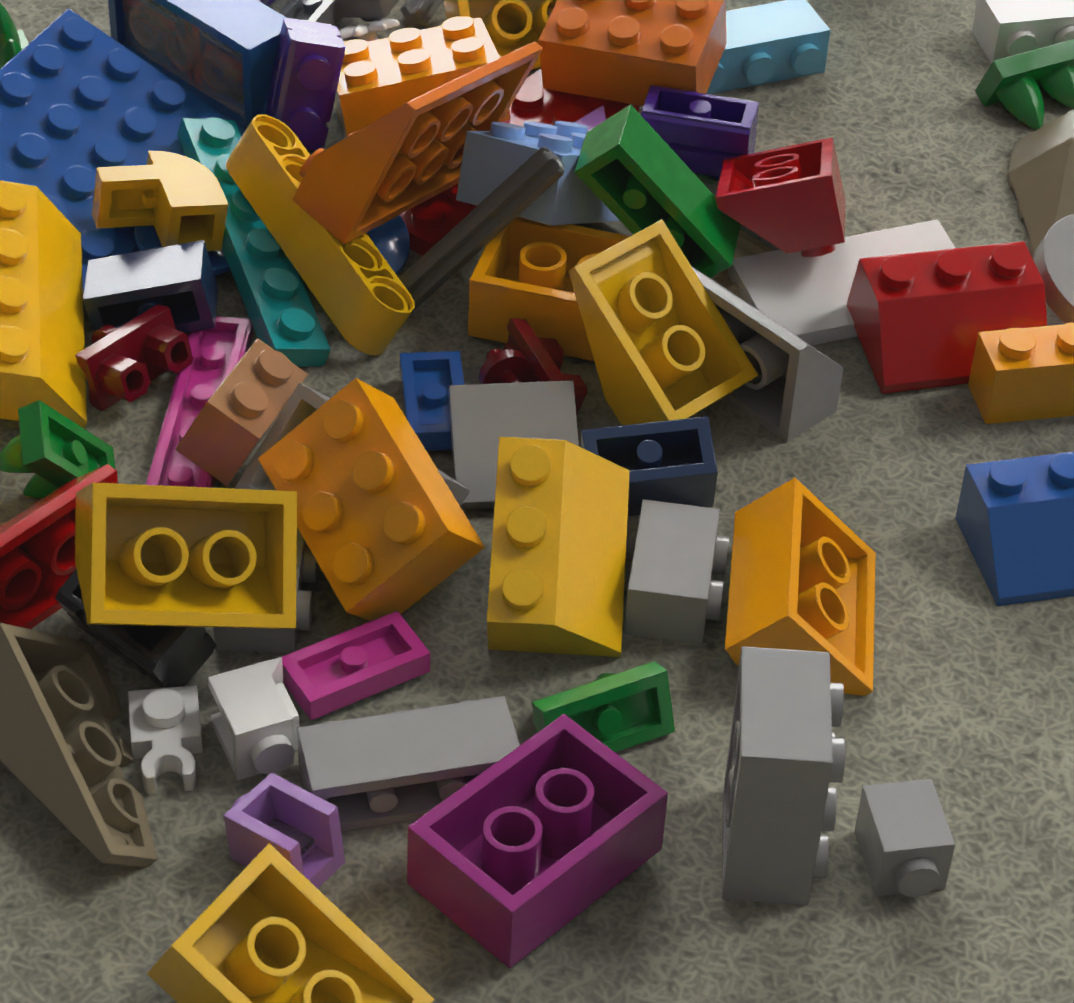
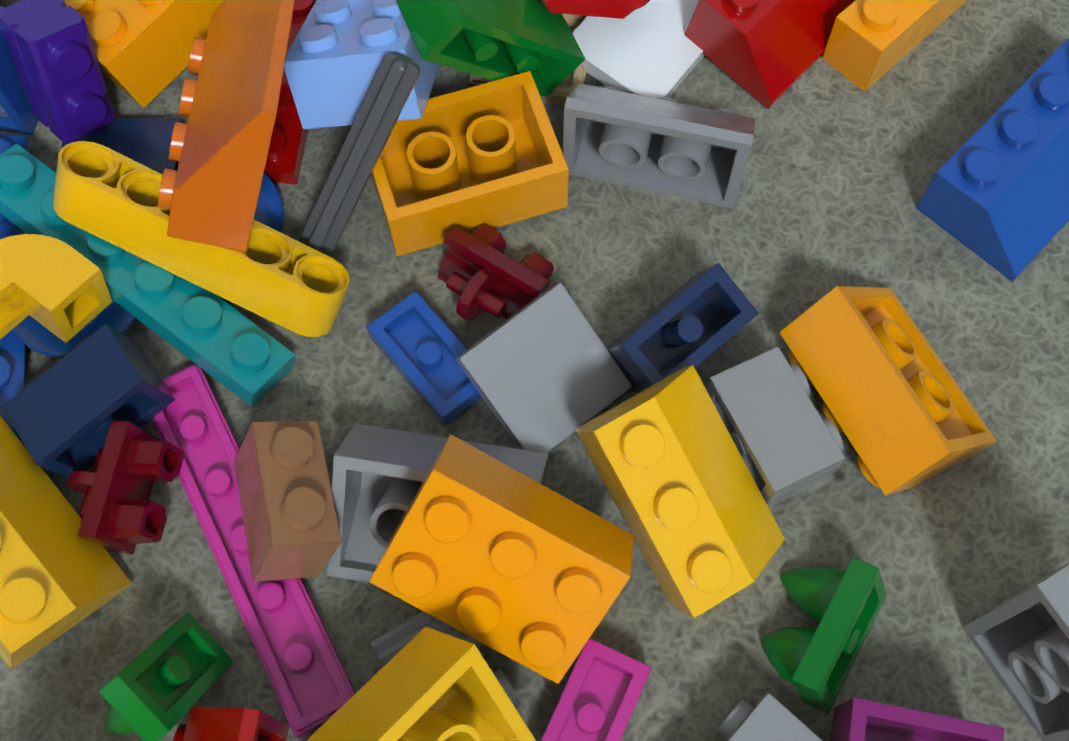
camera: 30 degrees left, 25 degrees up
(655, 331) = (604, 191): yellow slope -> none

